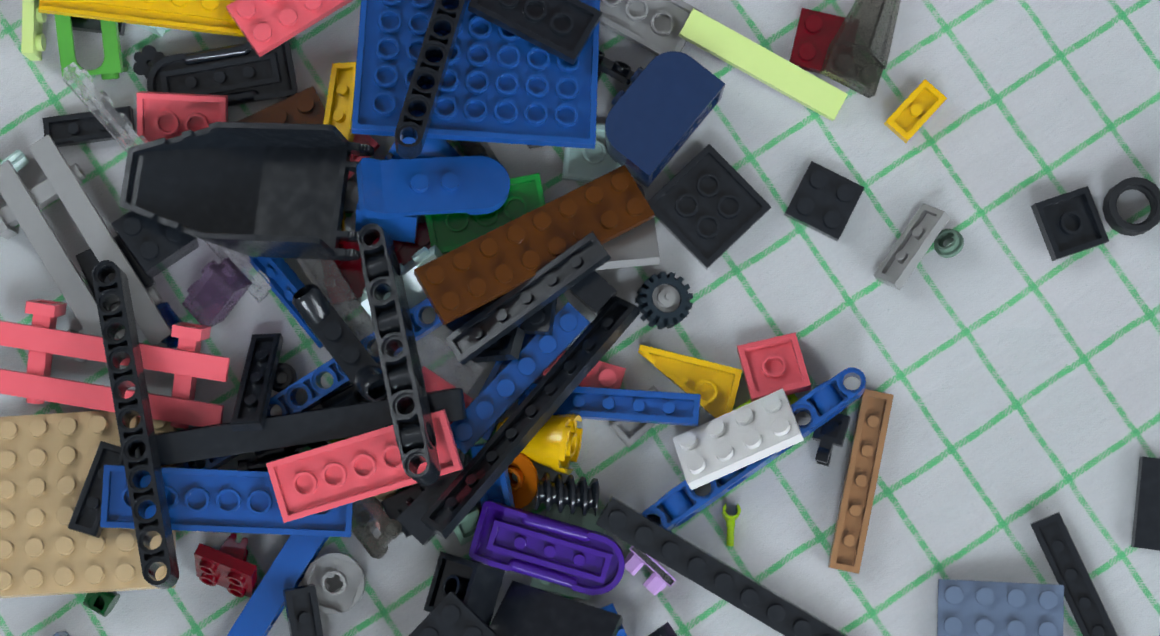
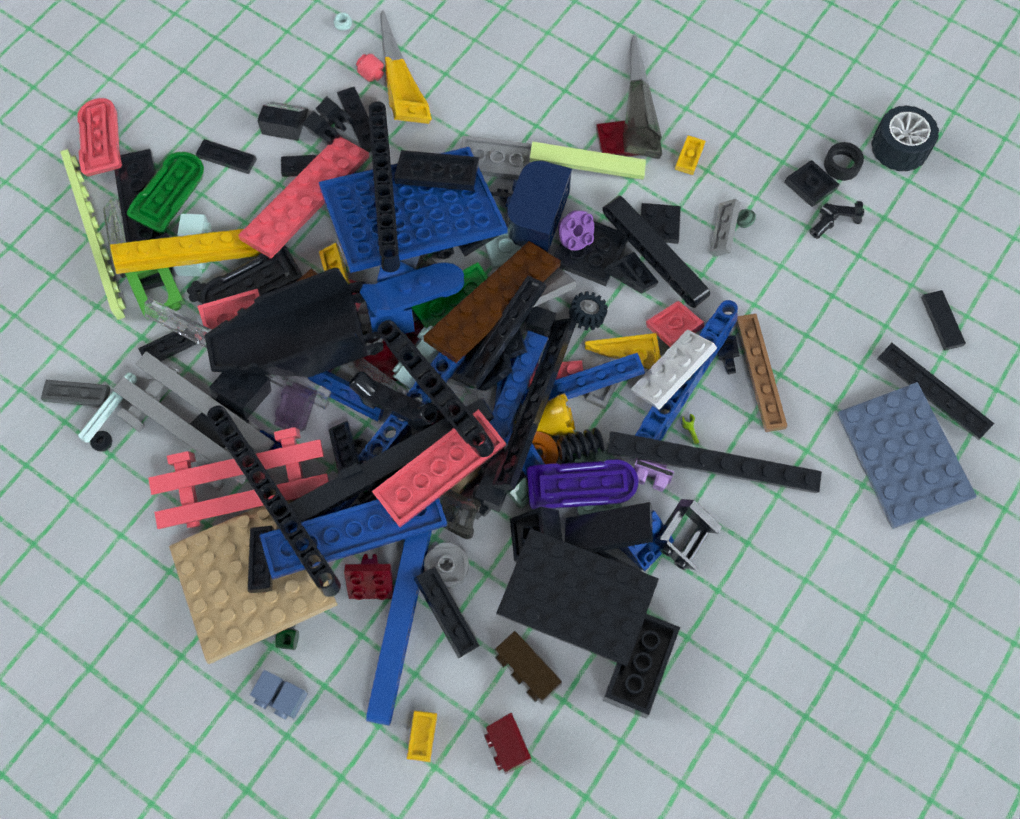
camera: 25 degrees left, 15 degrees down
(693, 178) = (576, 230): none -> medium lavender plate
(749, 267) = (632, 272): none -> black wing
(795, 248) = (656, 251): none -> black beam
(1073, 282) = (832, 212): none -> black pin

